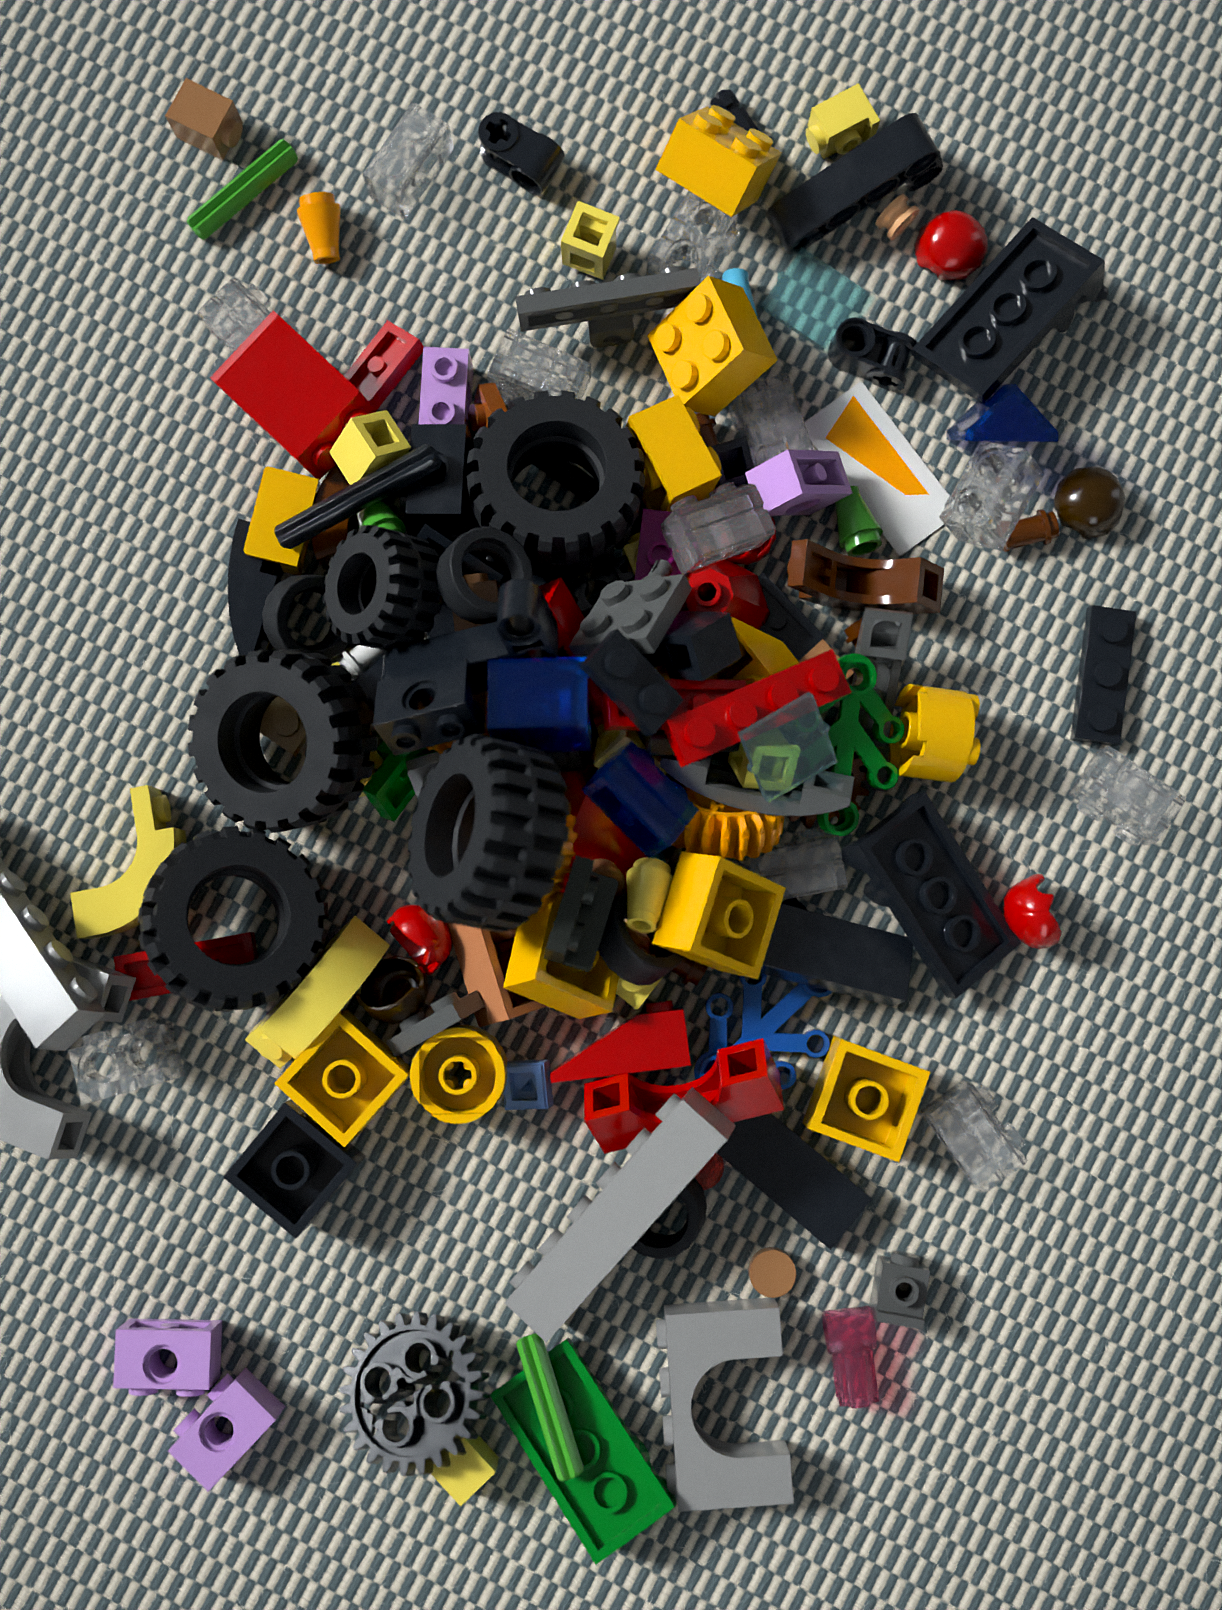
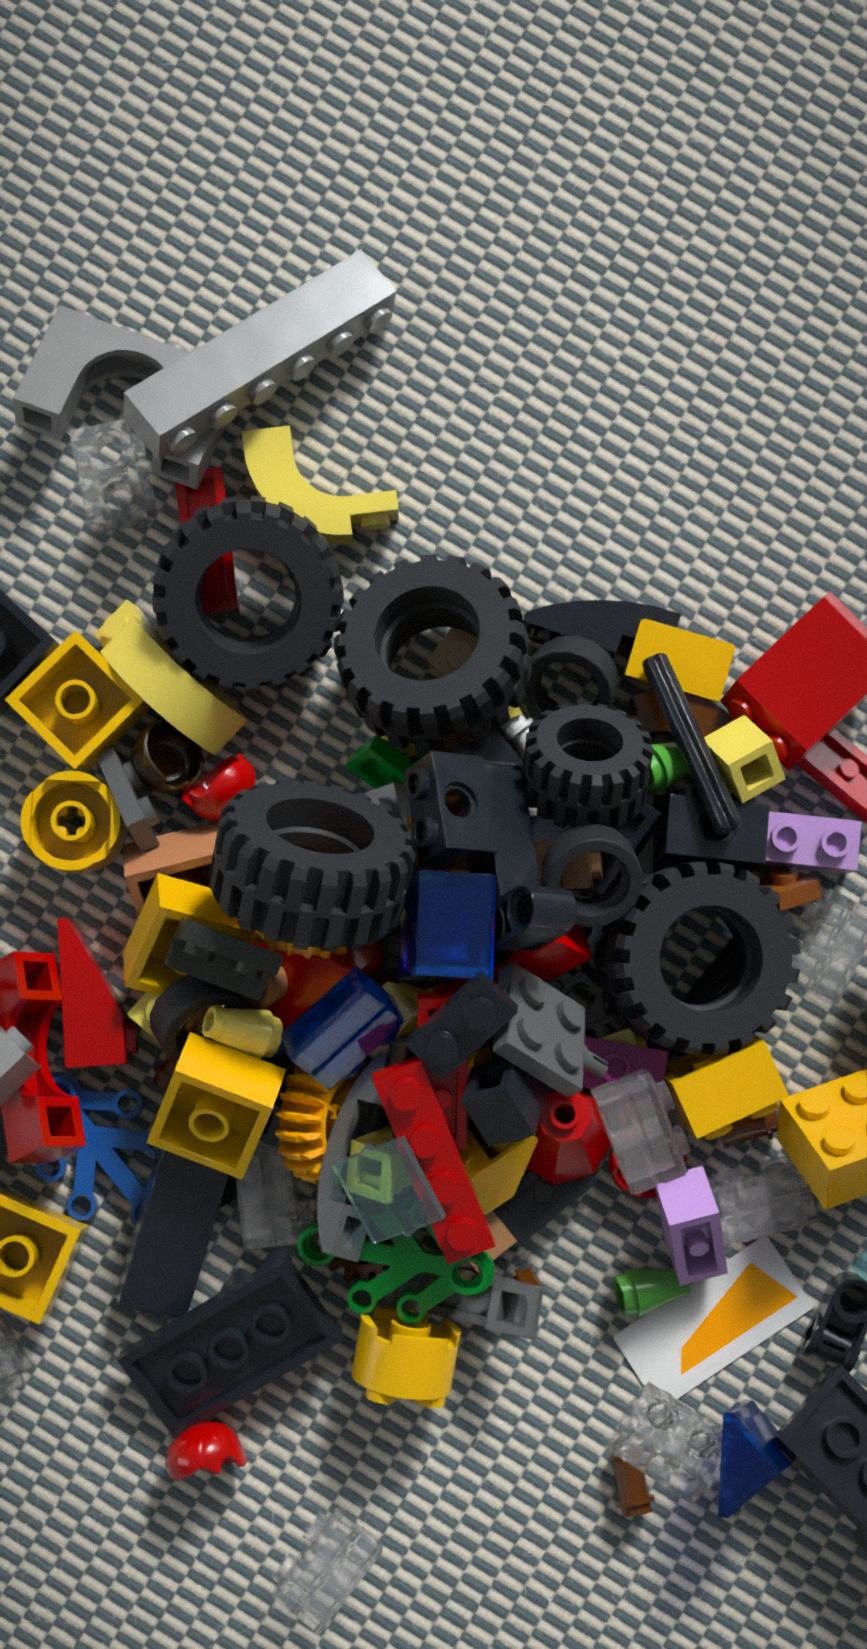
camera: 90 degrees right, 0 degrees up
(528, 1085) = (58, 894): medium blue tile -> none
(734, 461) = (719, 1155): black slope -> none
(858, 583) = (580, 1293): reddish brown arch -> none
(1089, 501) = (662, 1556): dark brown hair -> none
(1103, 675) = (465, 1556): black plate -> none

